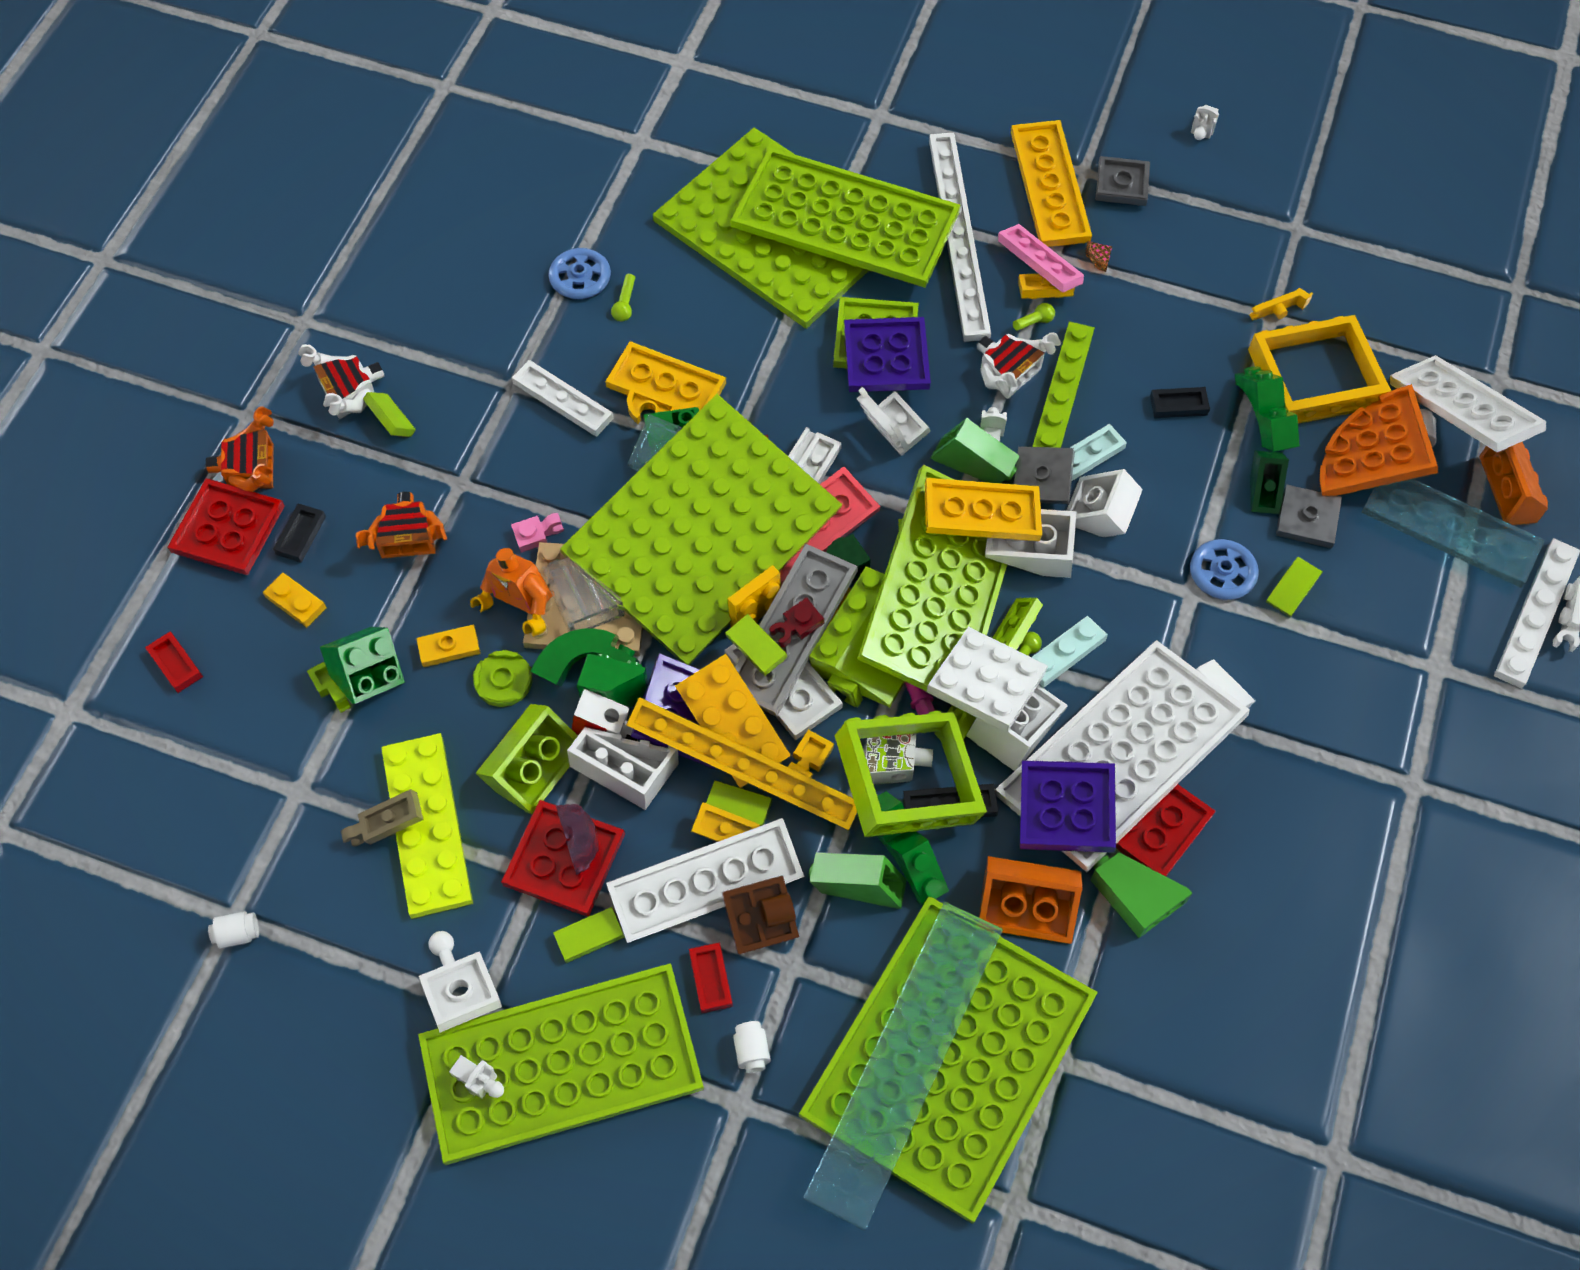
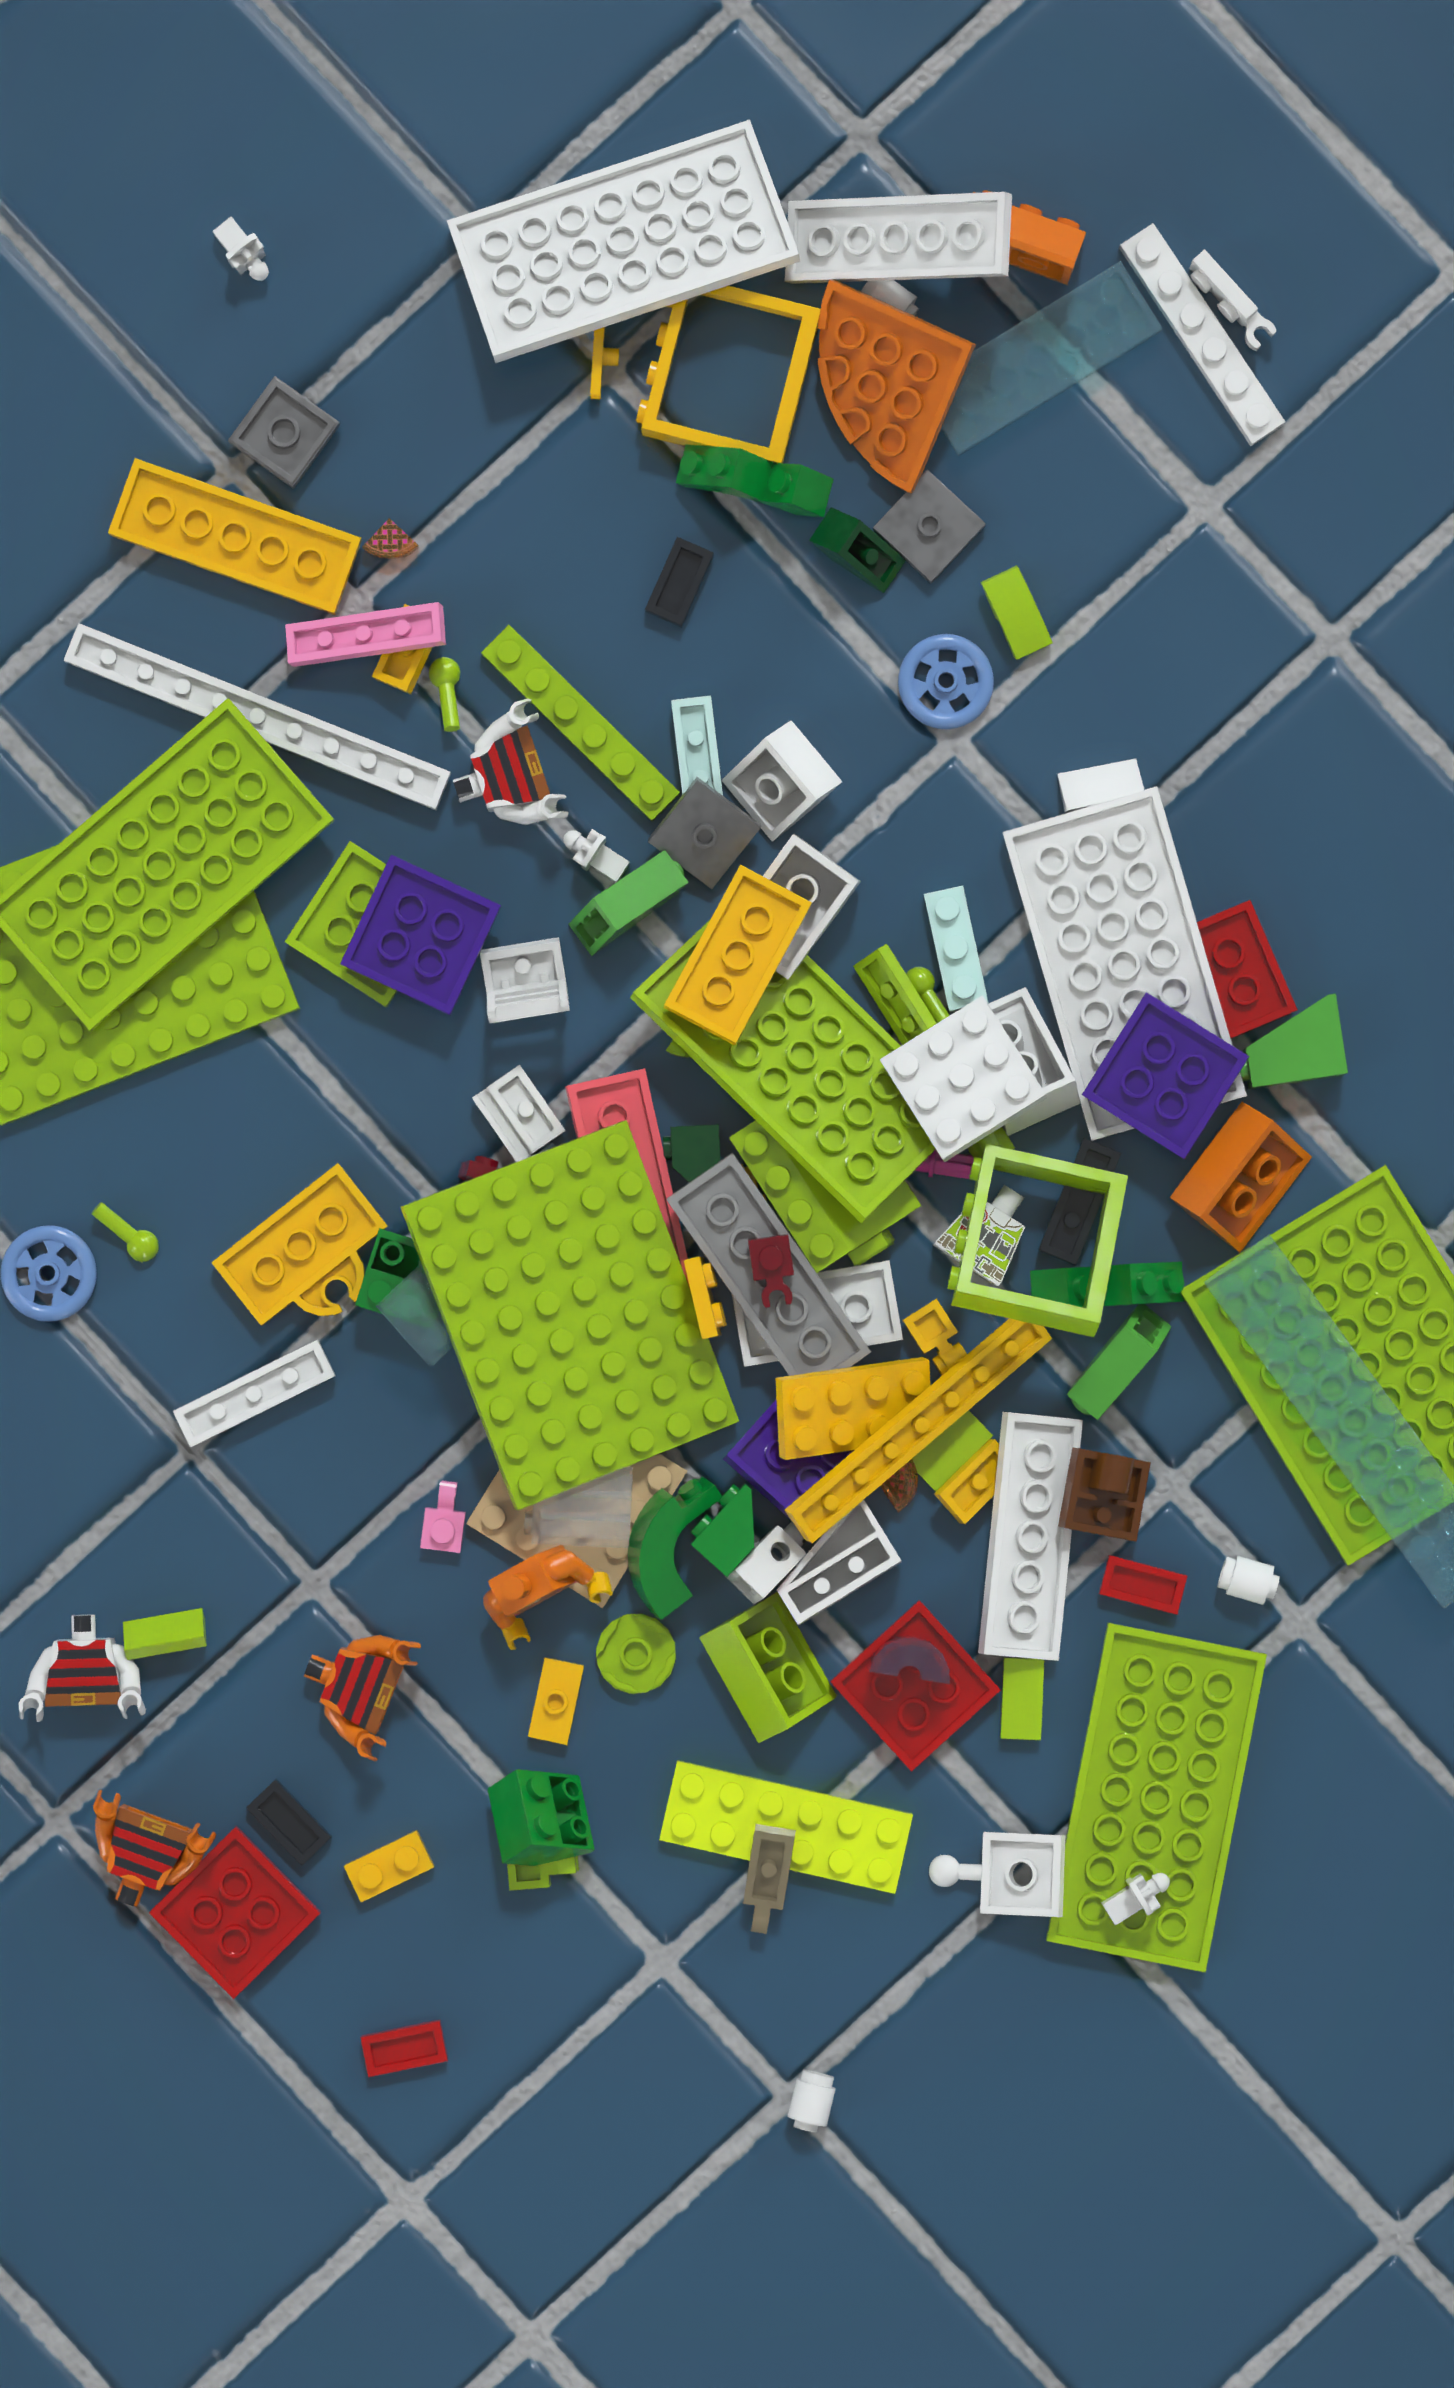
camera: 65 degrees left, 25 degrees up
(698, 783) = (902, 1486): none -> clear orange tile
(756, 645) = (774, 1332): lime tile -> none
(1350, 282) = (623, 241): none -> white plate

